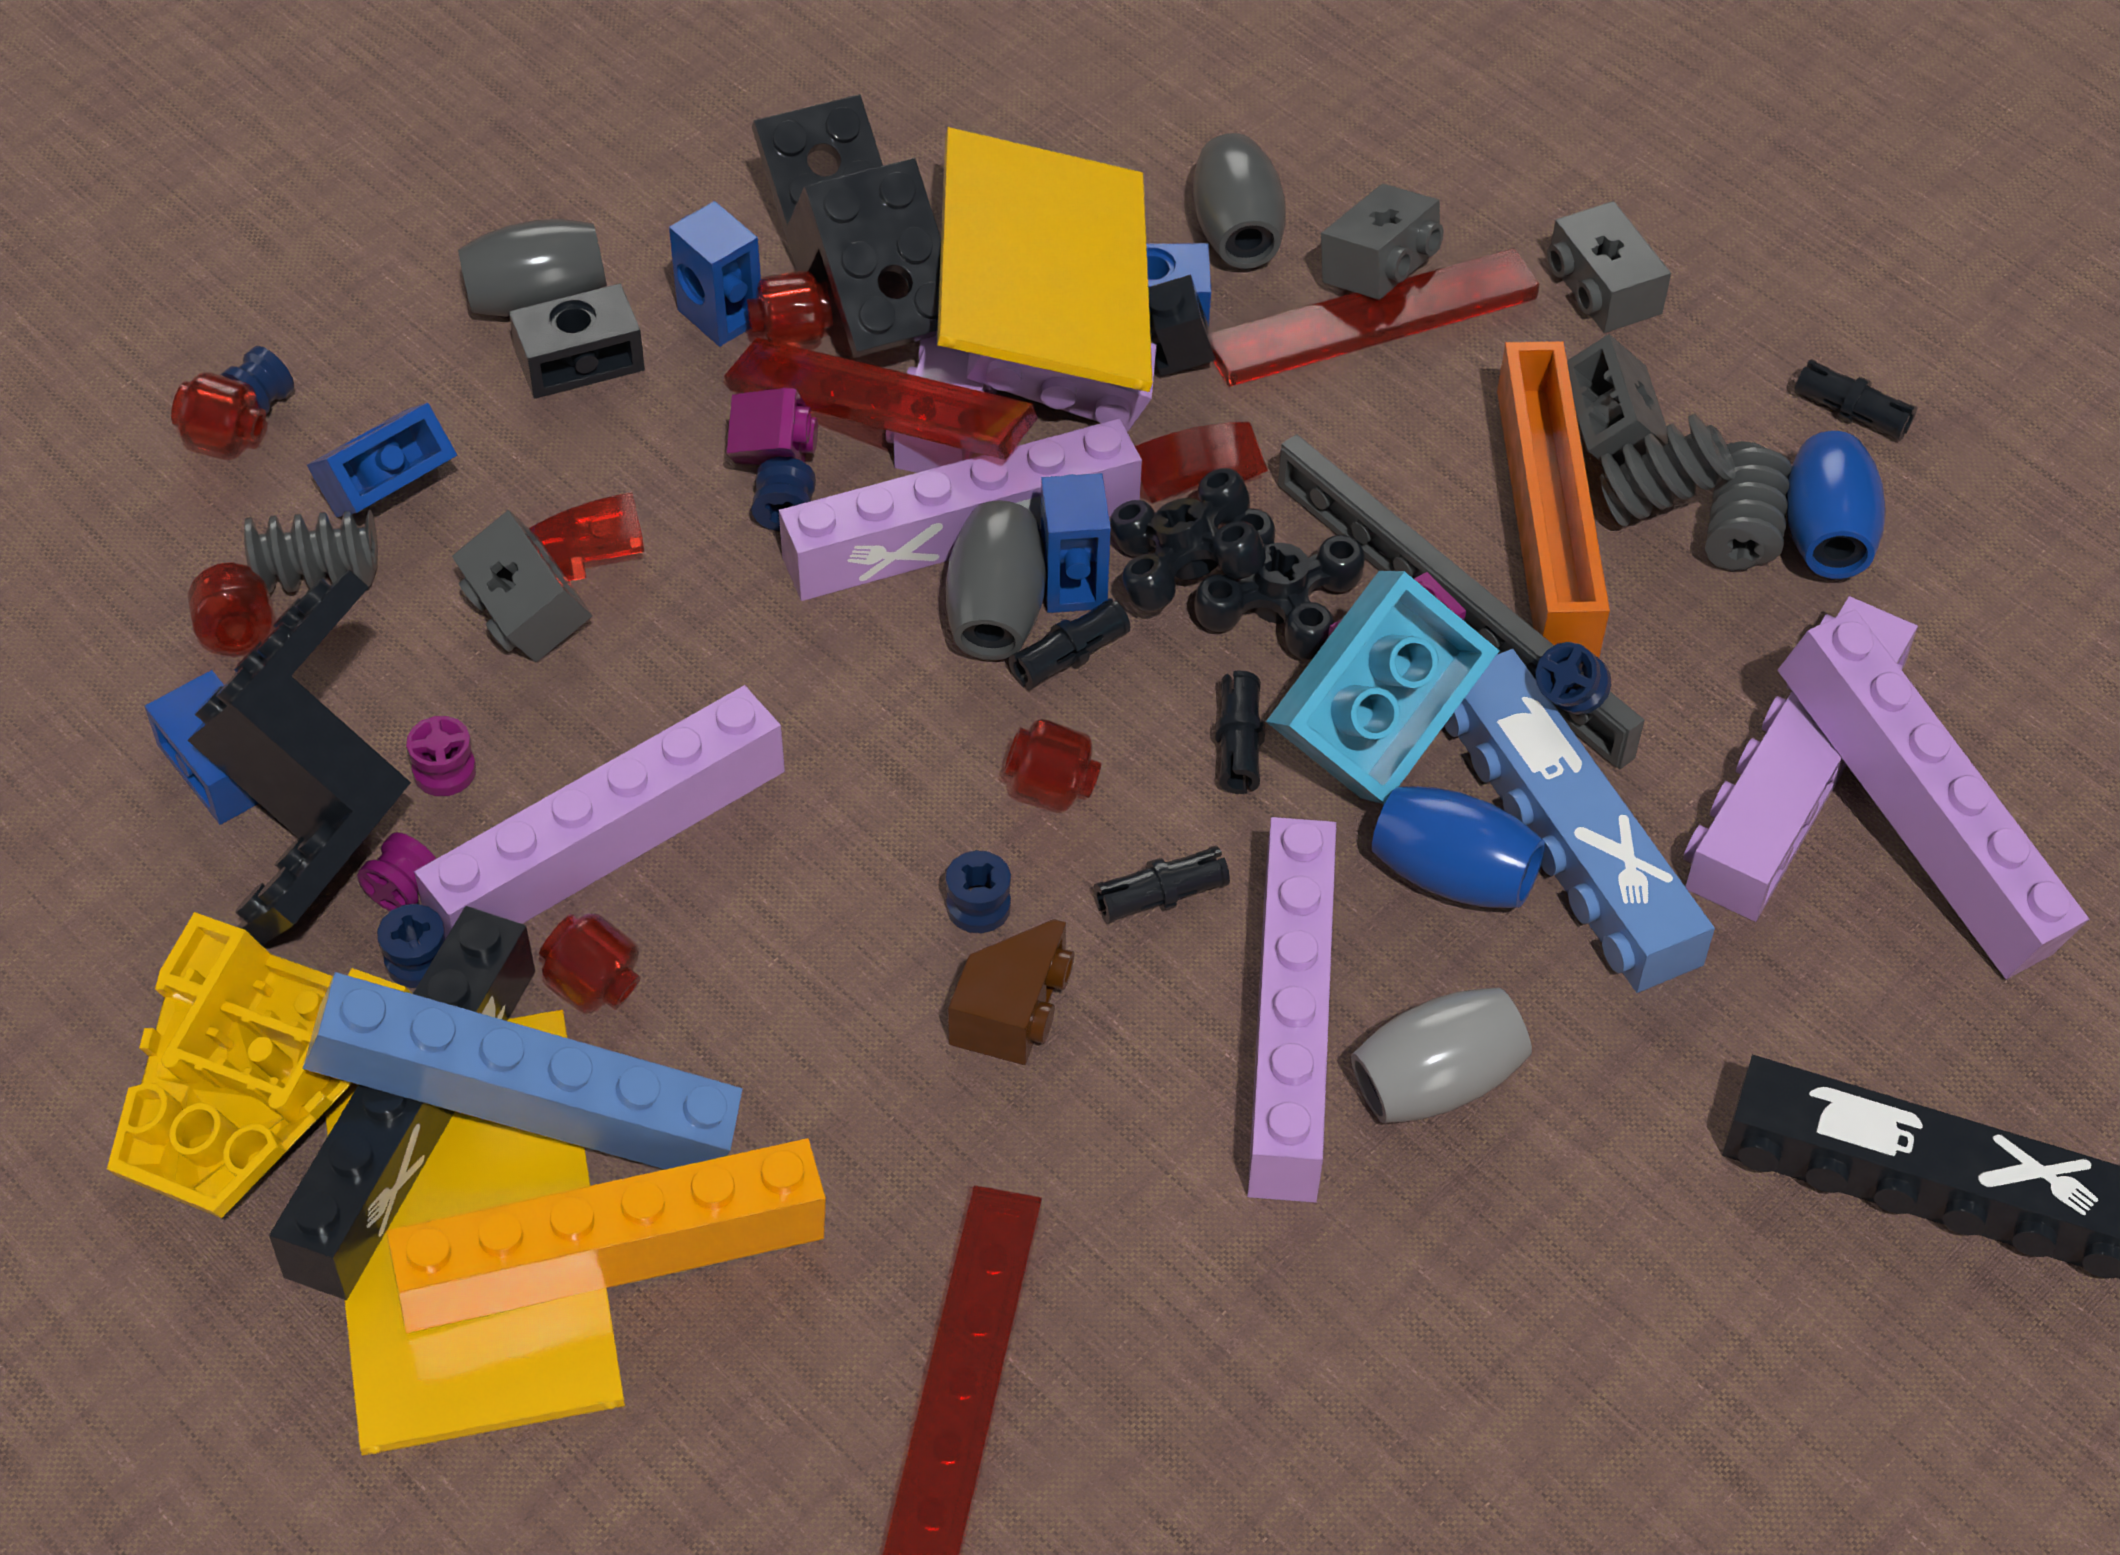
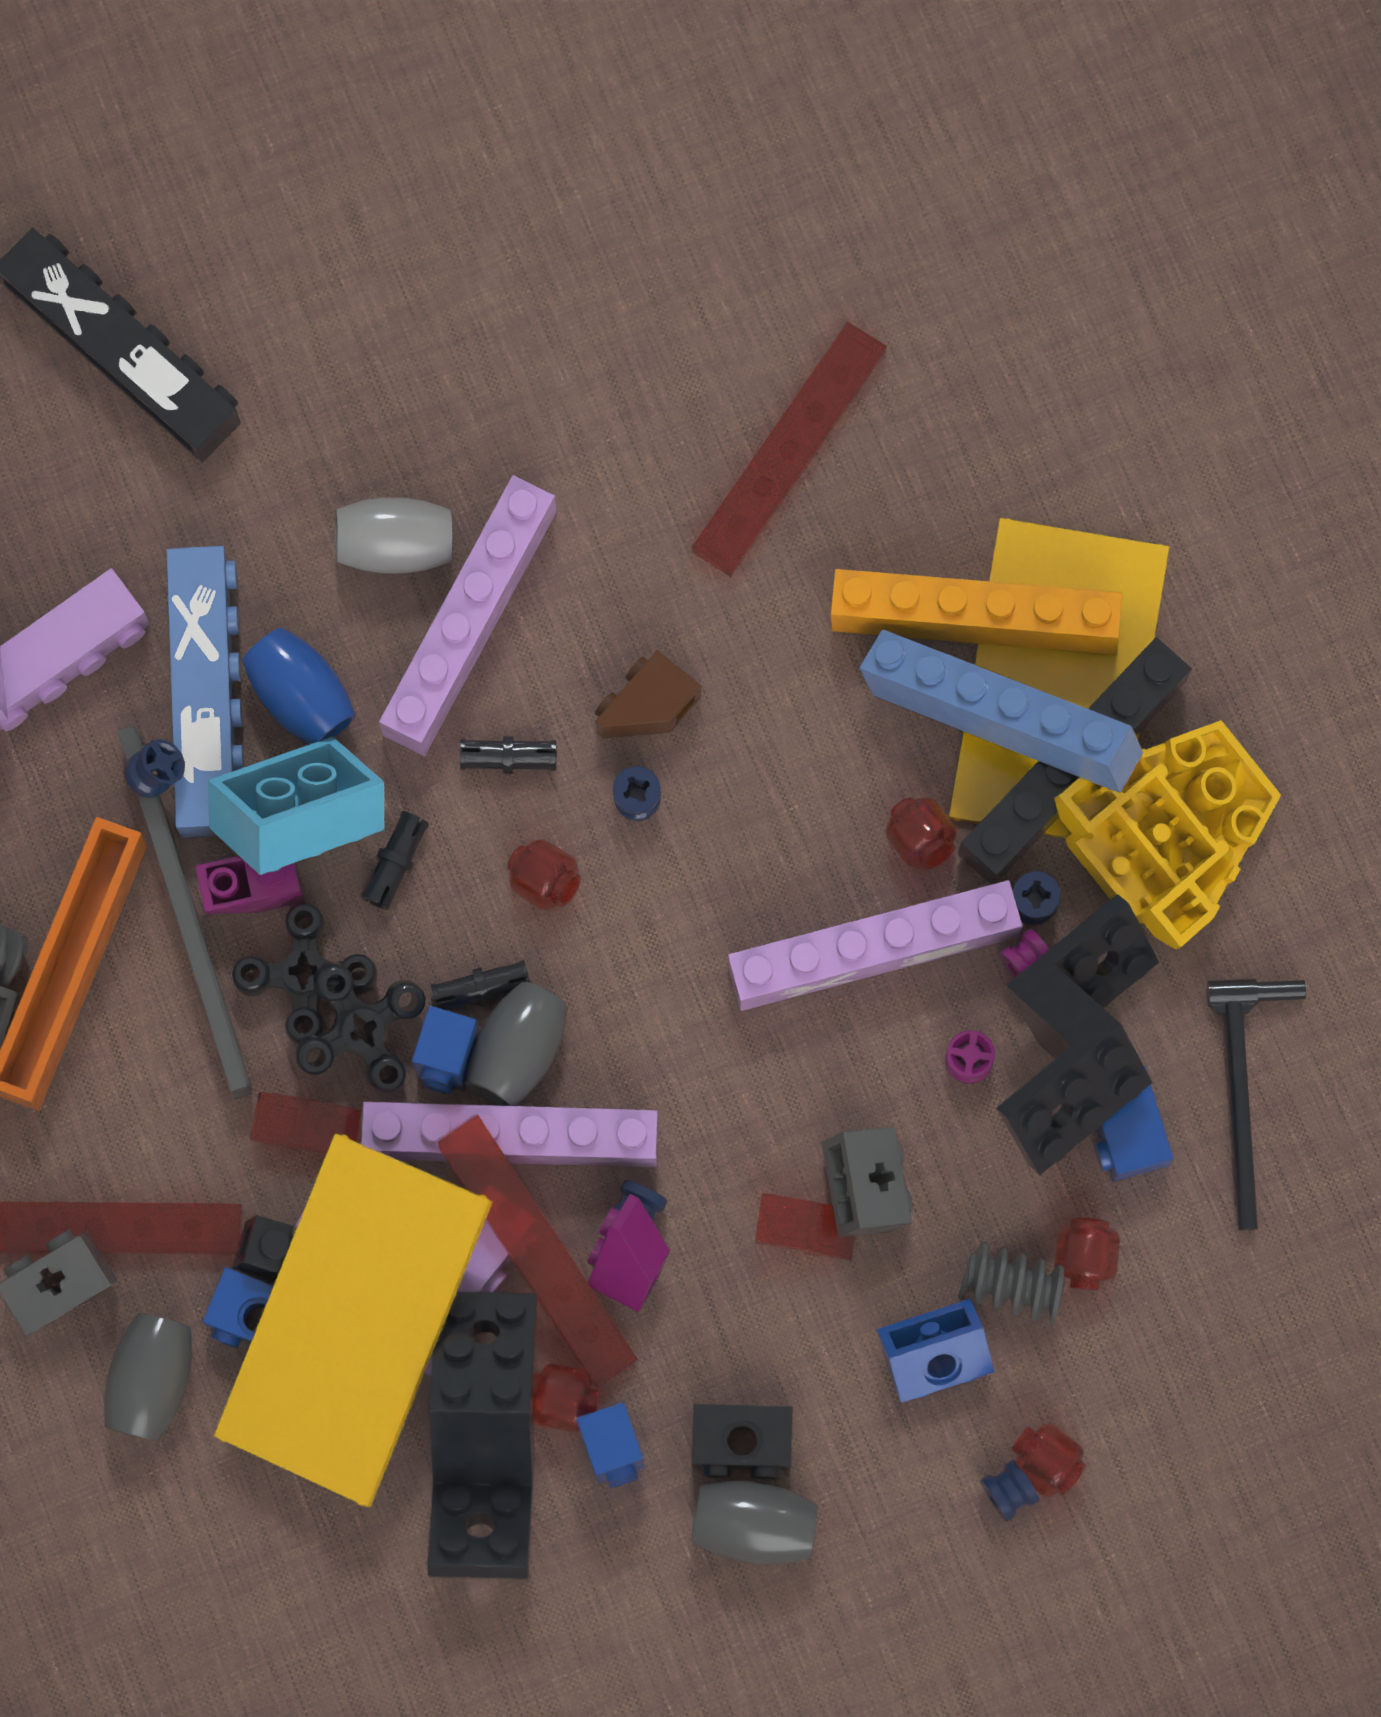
camera: 155 degrees left, 25 degrees up
(117, 924) = (1233, 1000): none -> black bar

